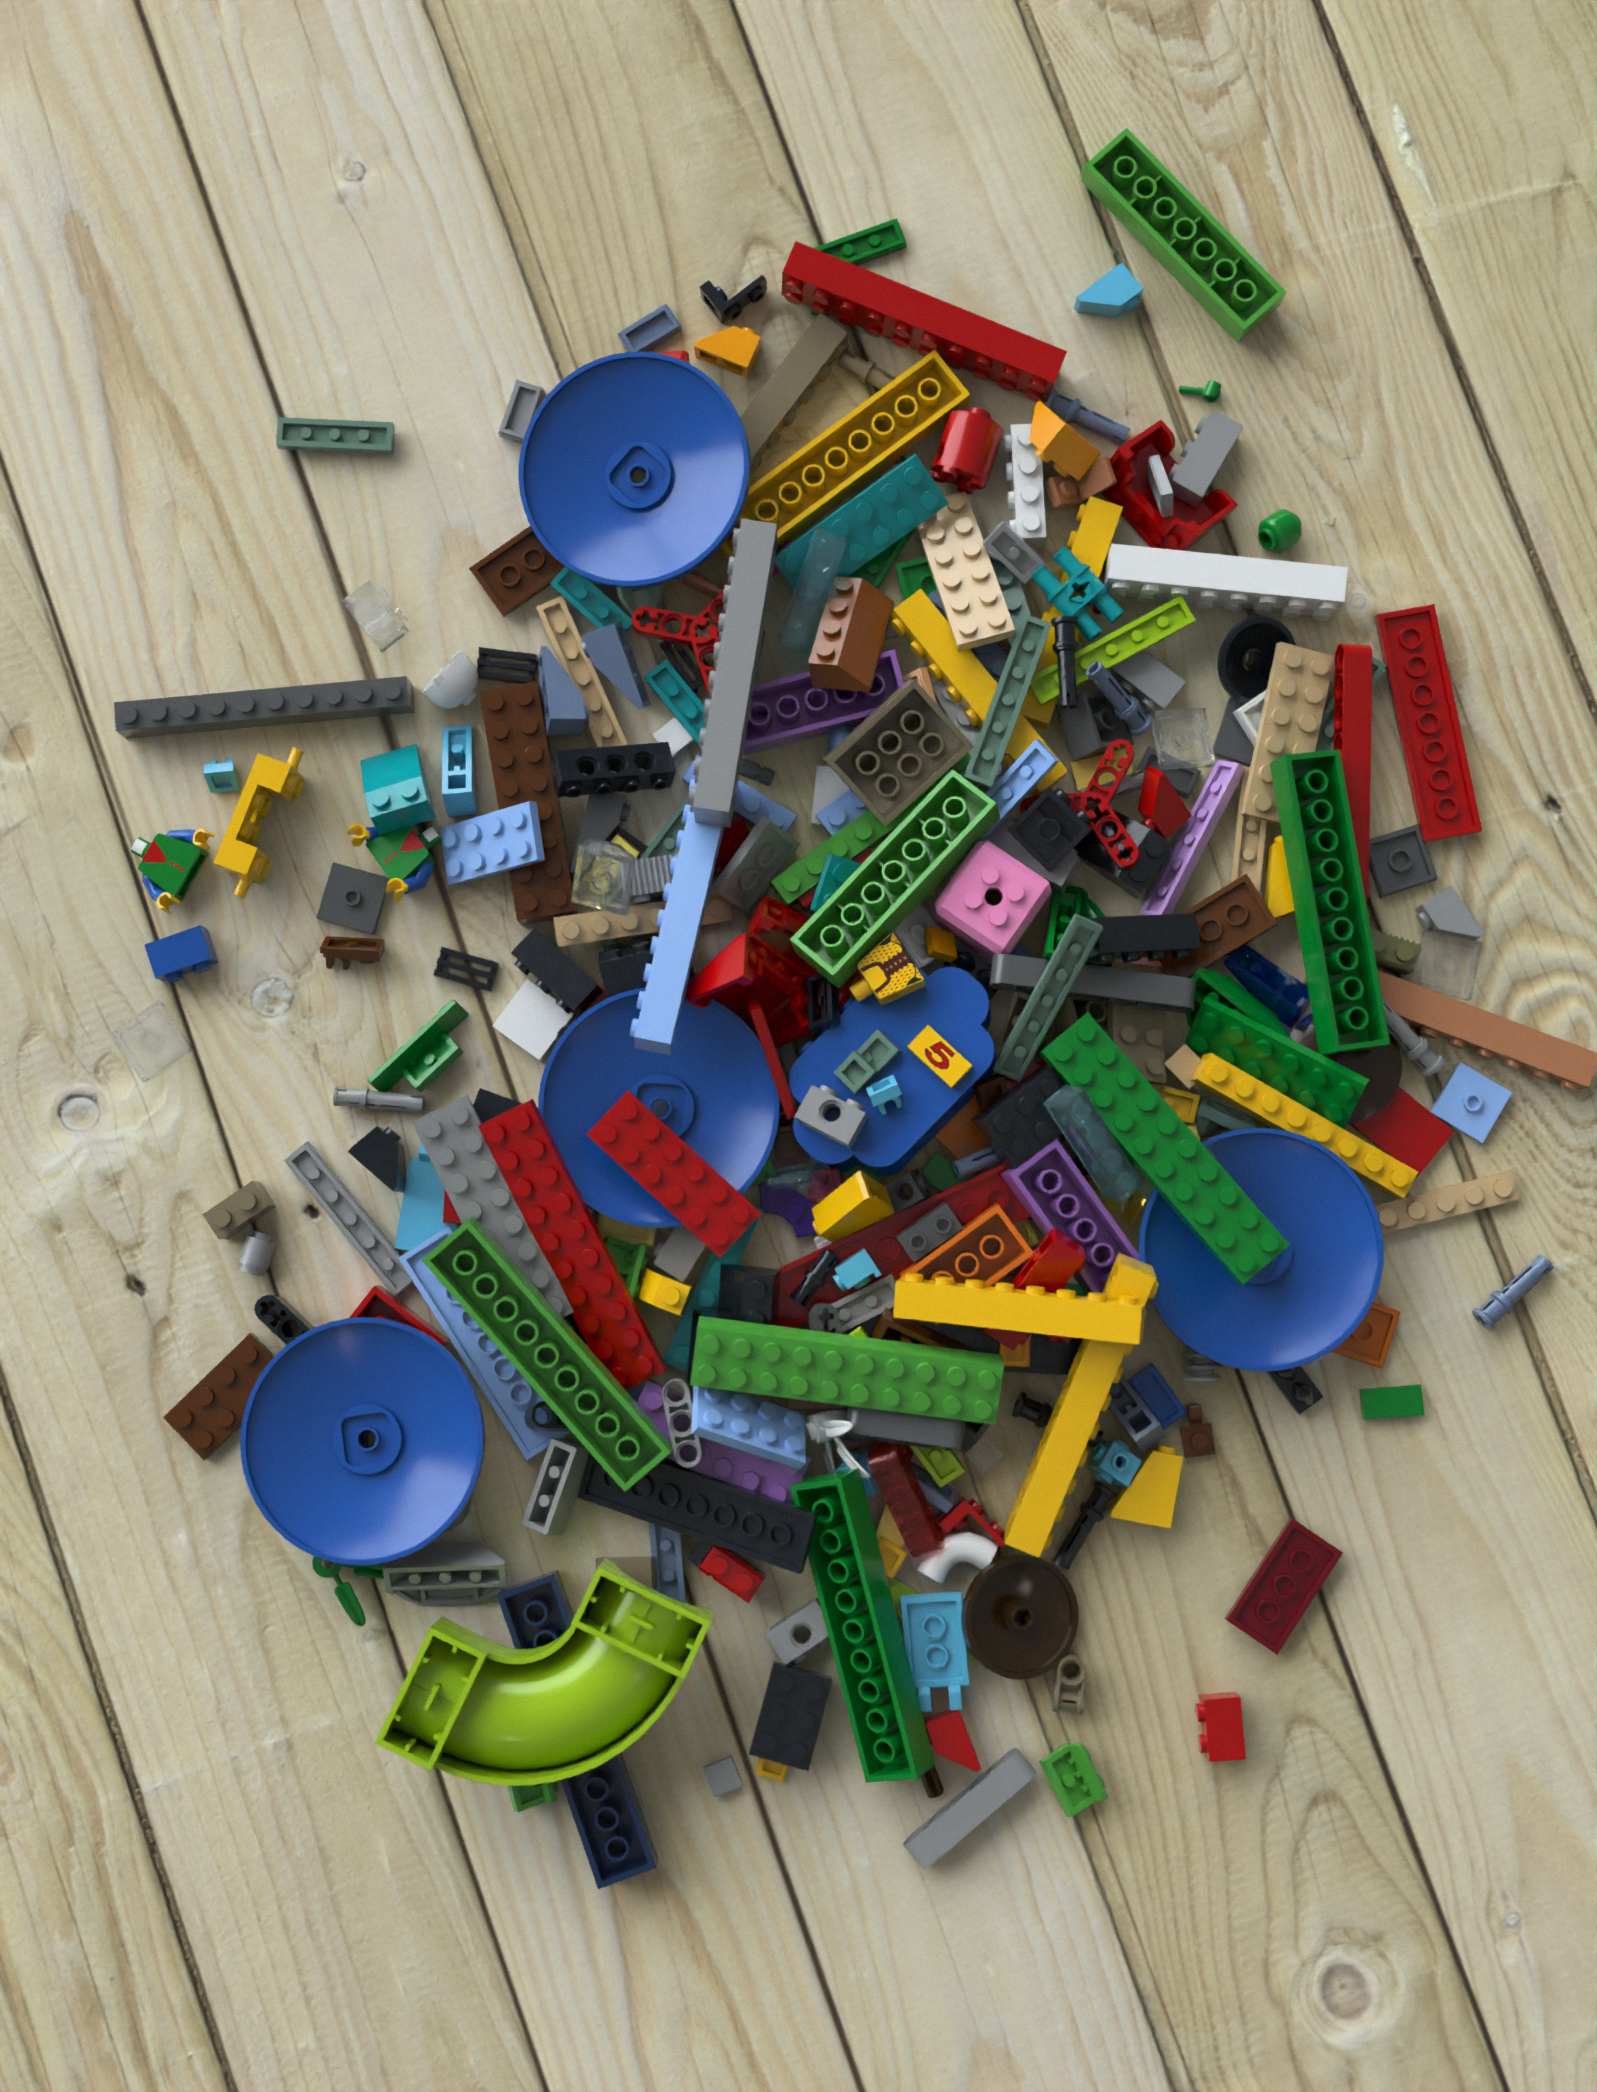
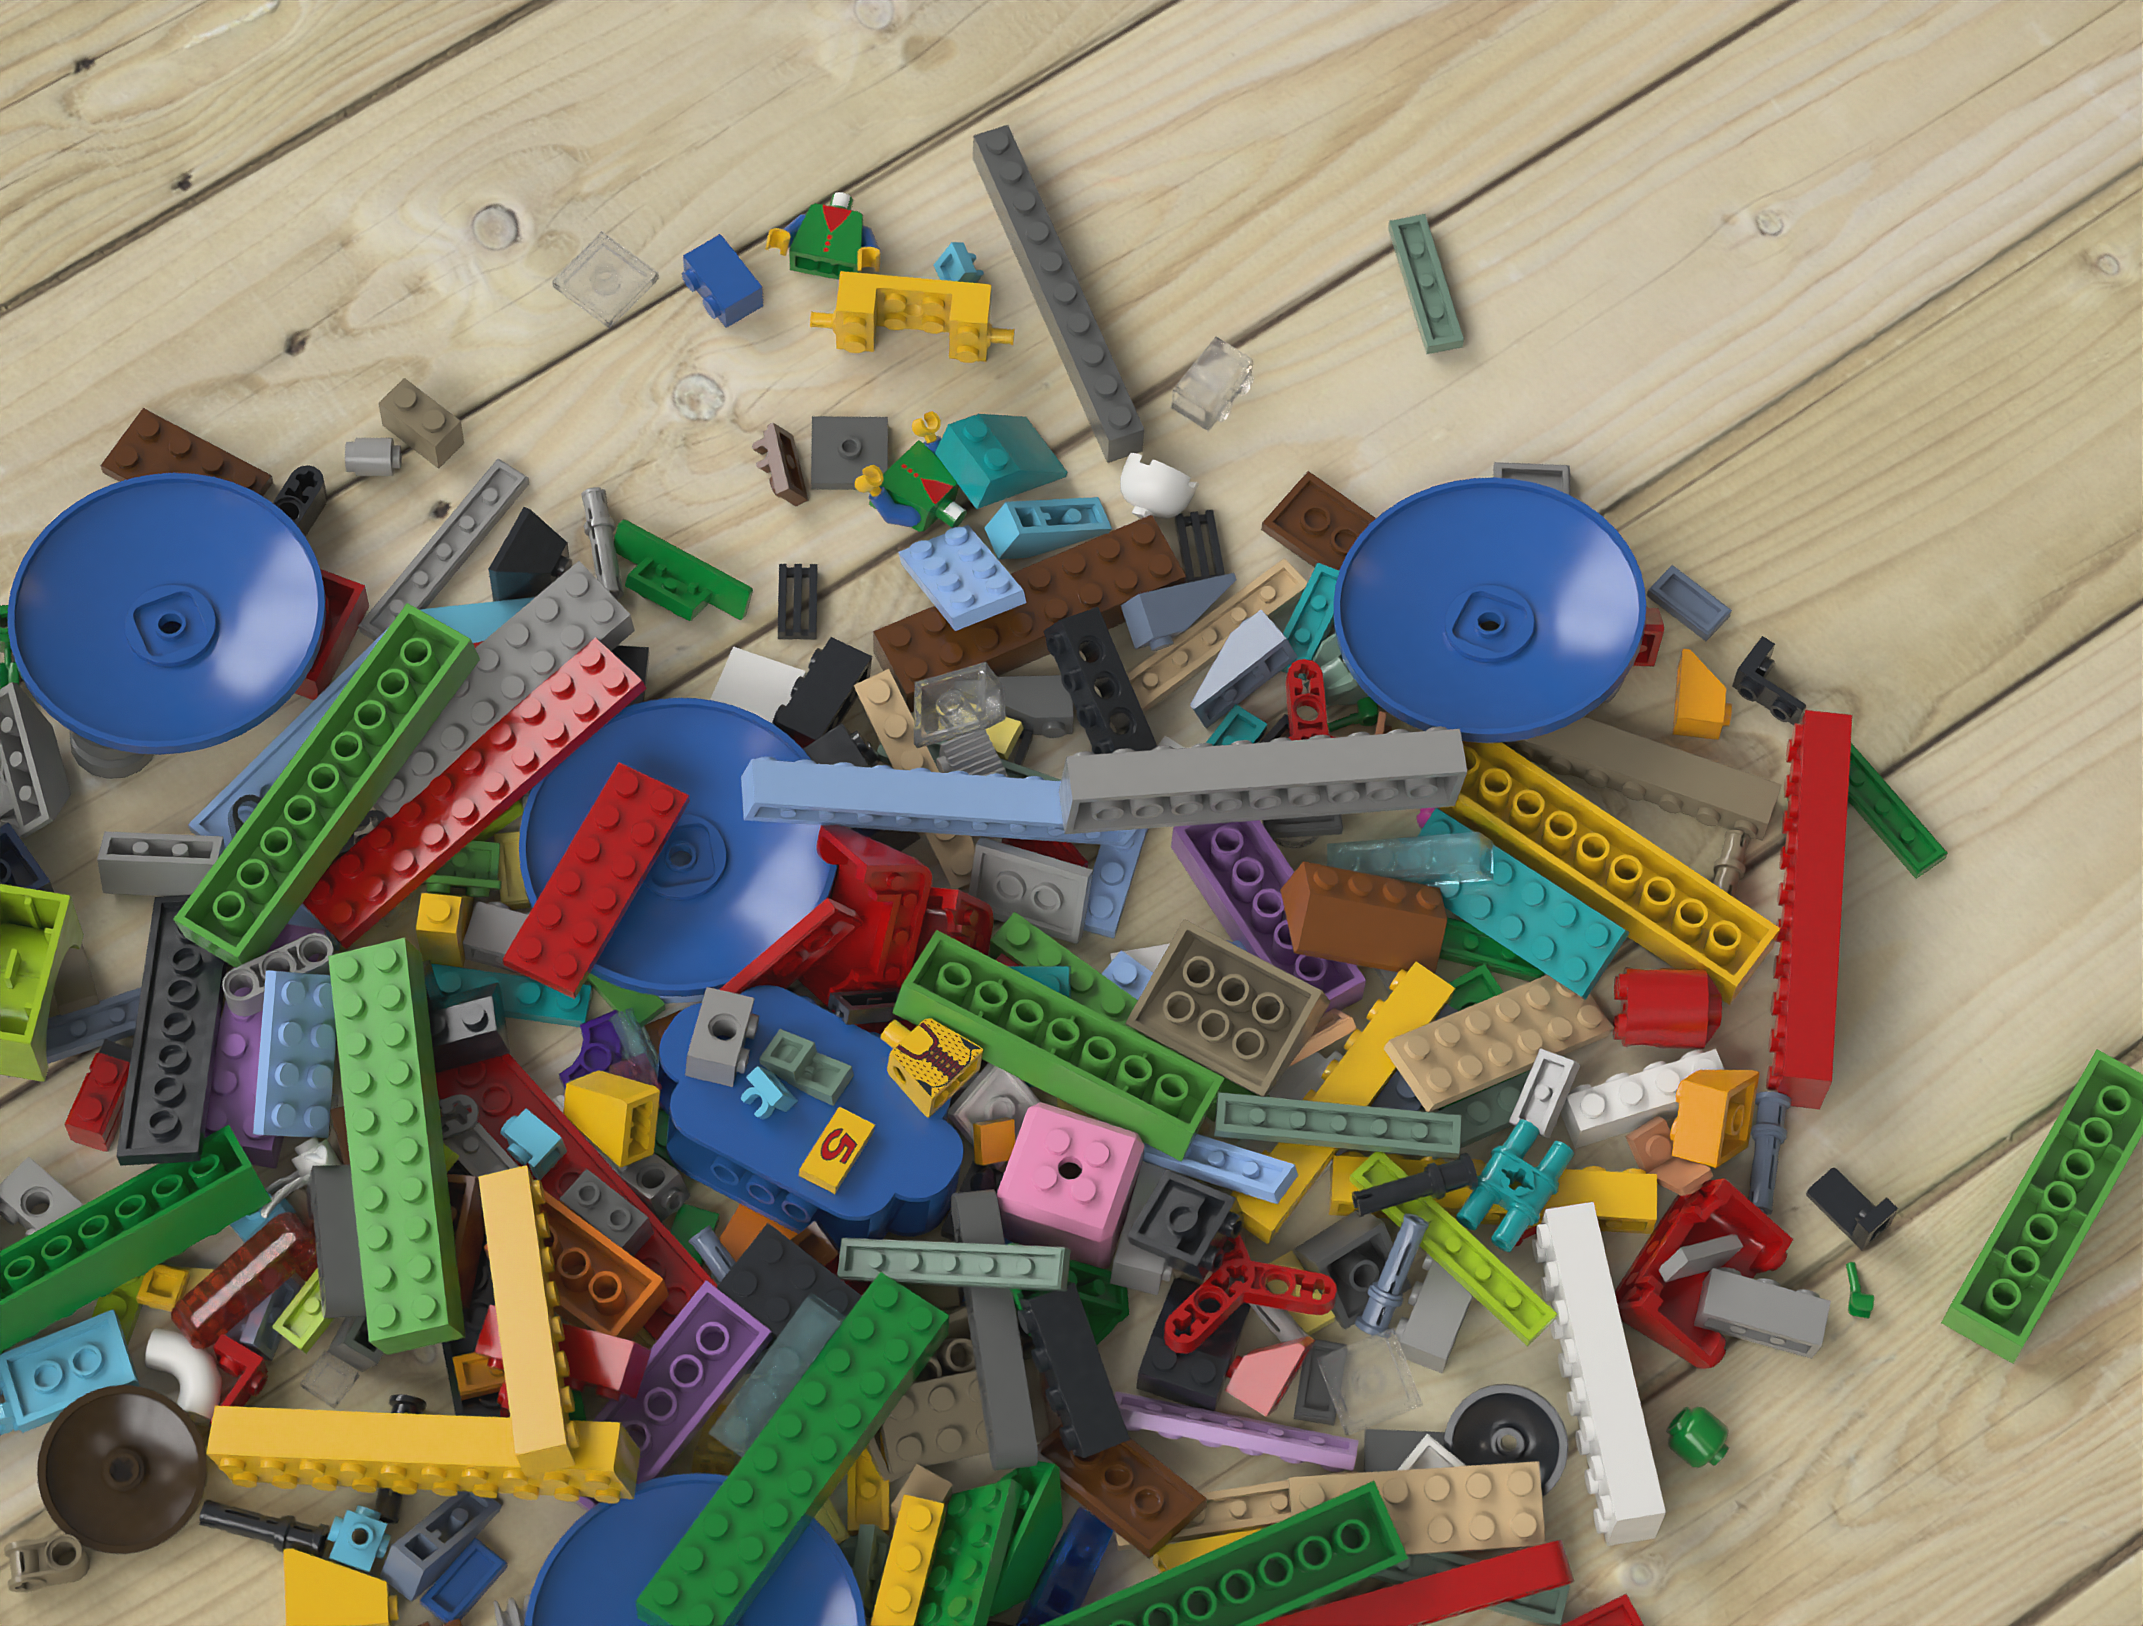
camera: 65 degrees right, 20 degrees down
(675, 588) = (1366, 716): none -> green hand
(754, 771) = (1158, 861): dark grey axle -> none
(814, 1277) = (510, 1096): black pin -> none
(1111, 294) = (1944, 1138): medium azure slope -> none
(1145, 373) = (1850, 1208): none -> black bracket

